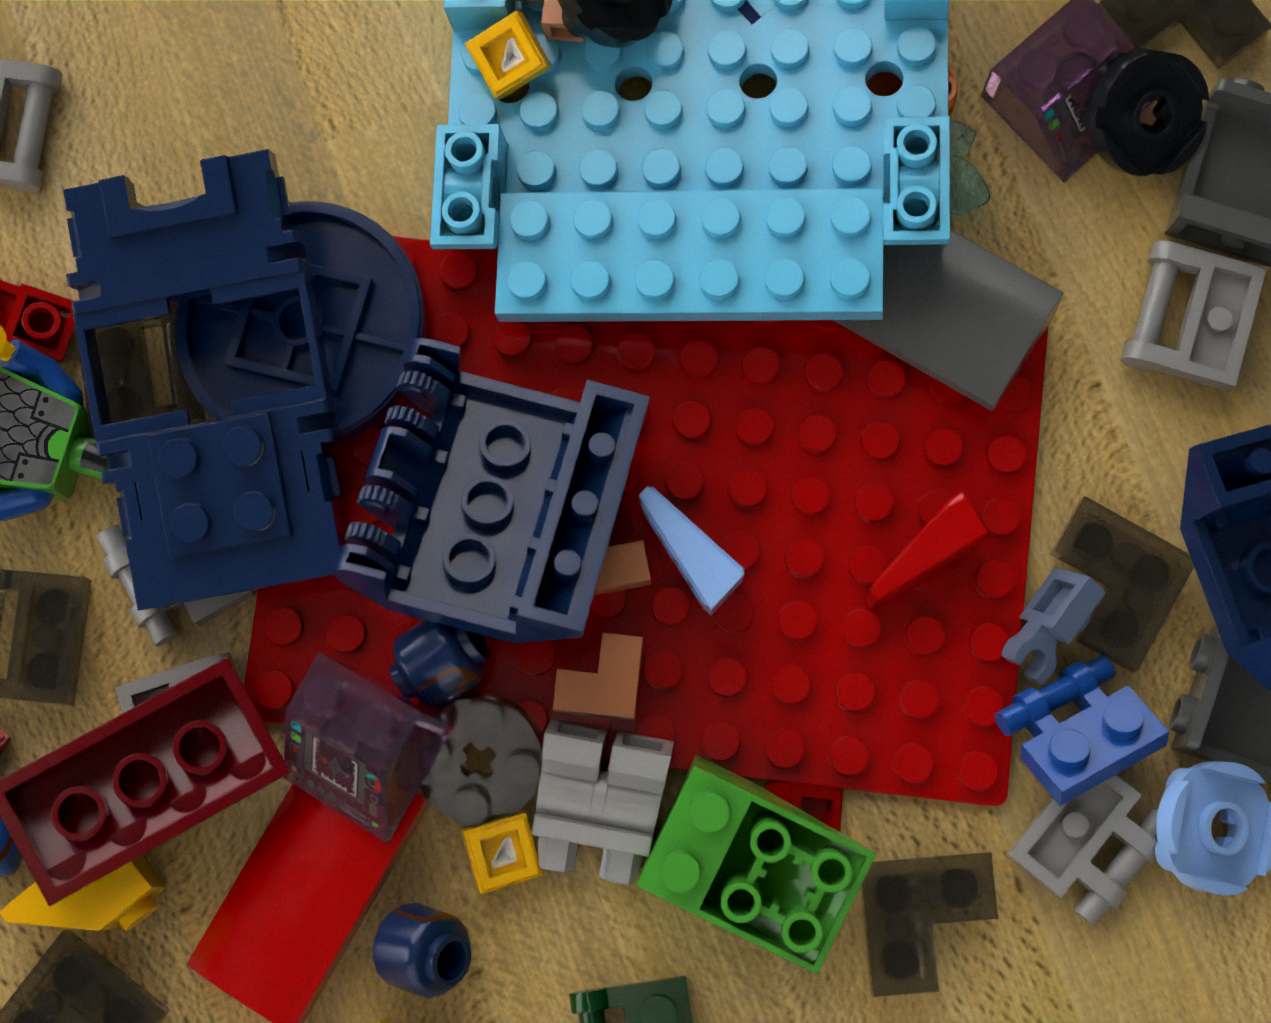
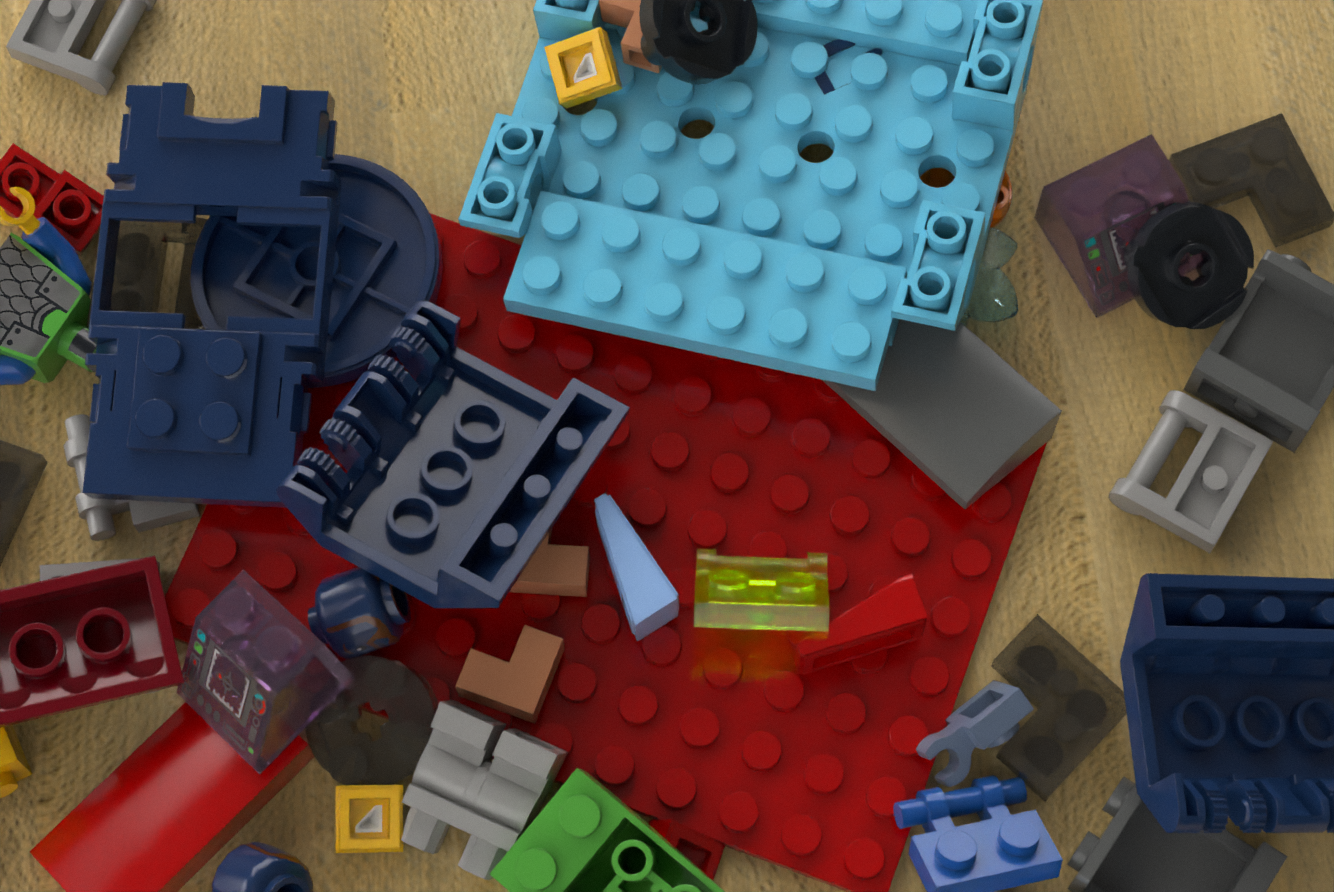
camera: 10 degrees right, 10 degrees down
(822, 545) = (761, 592): none -> clear neon green plate

